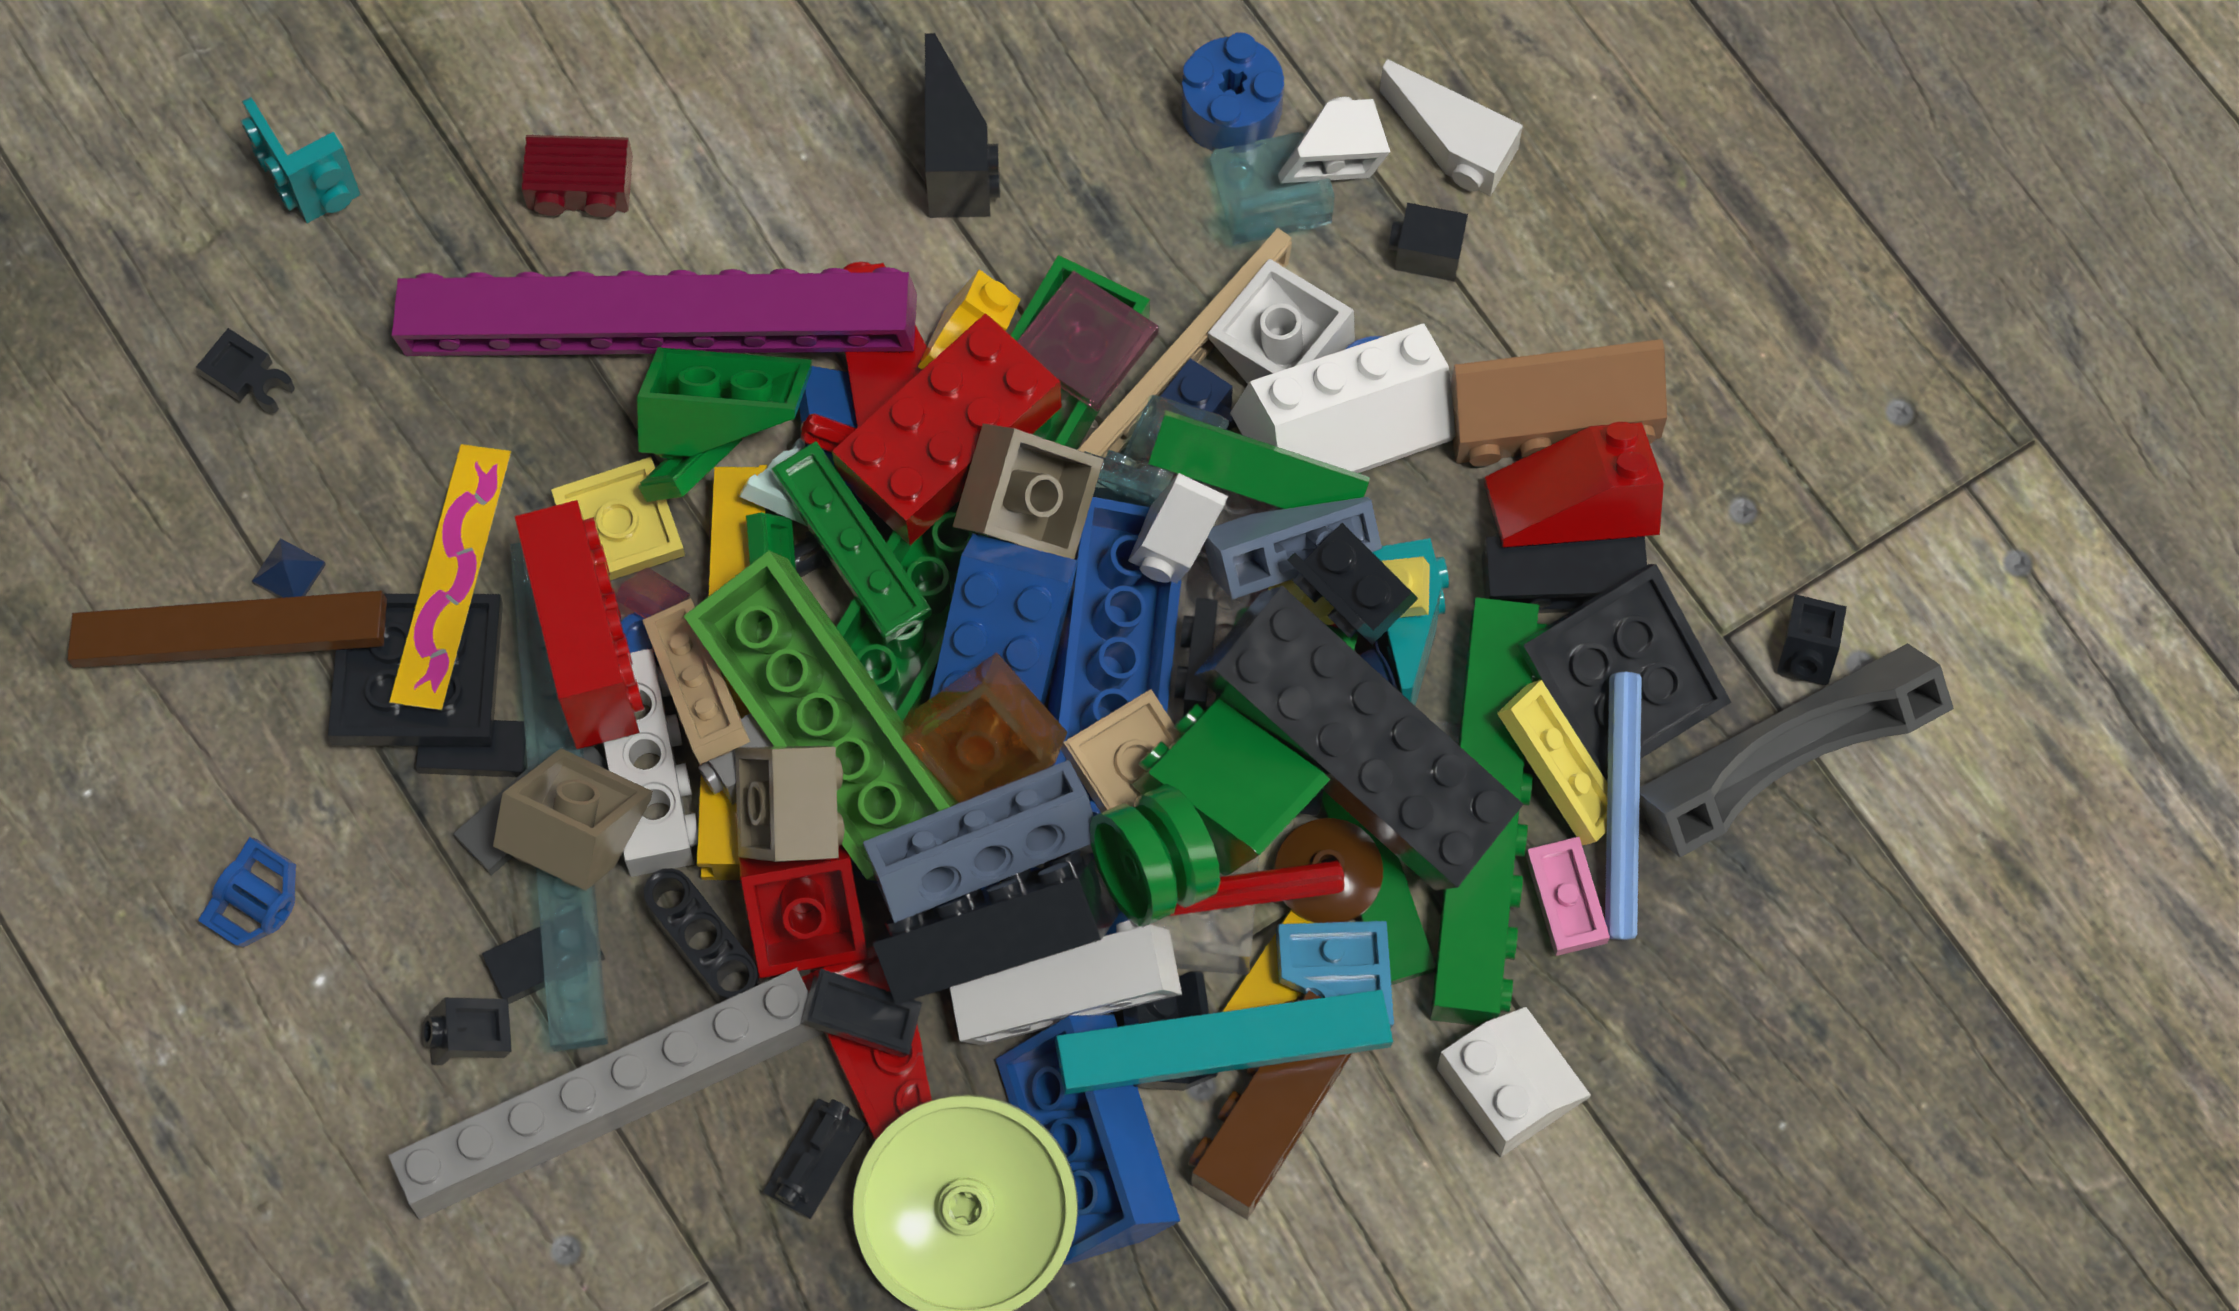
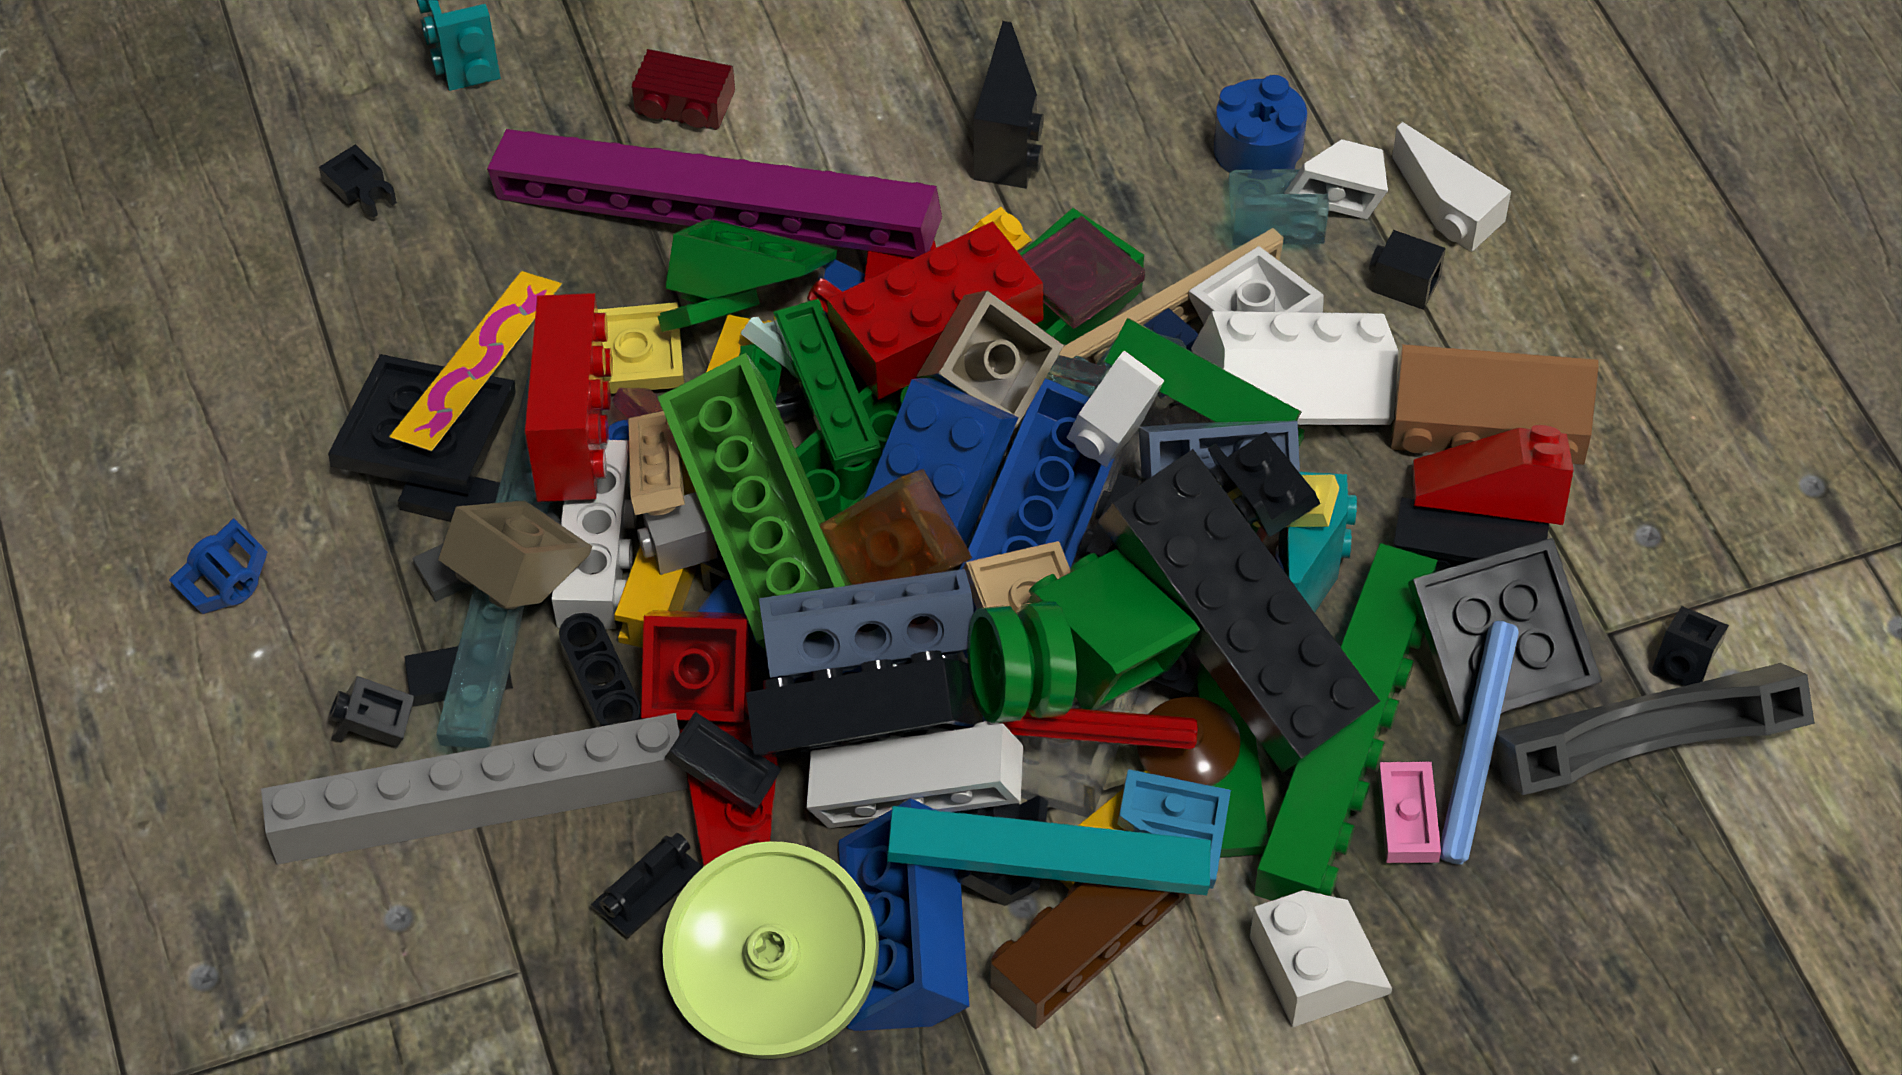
camera: 15 degrees right, 15 degrees down
(227, 629) = (275, 361): reddish brown tile -> none
(288, 571) = (343, 336): dark blue slope -> none
(788, 802) = (704, 557): dark tan slope -> none
(1558, 760) = (1425, 688): light yellow plate -> none

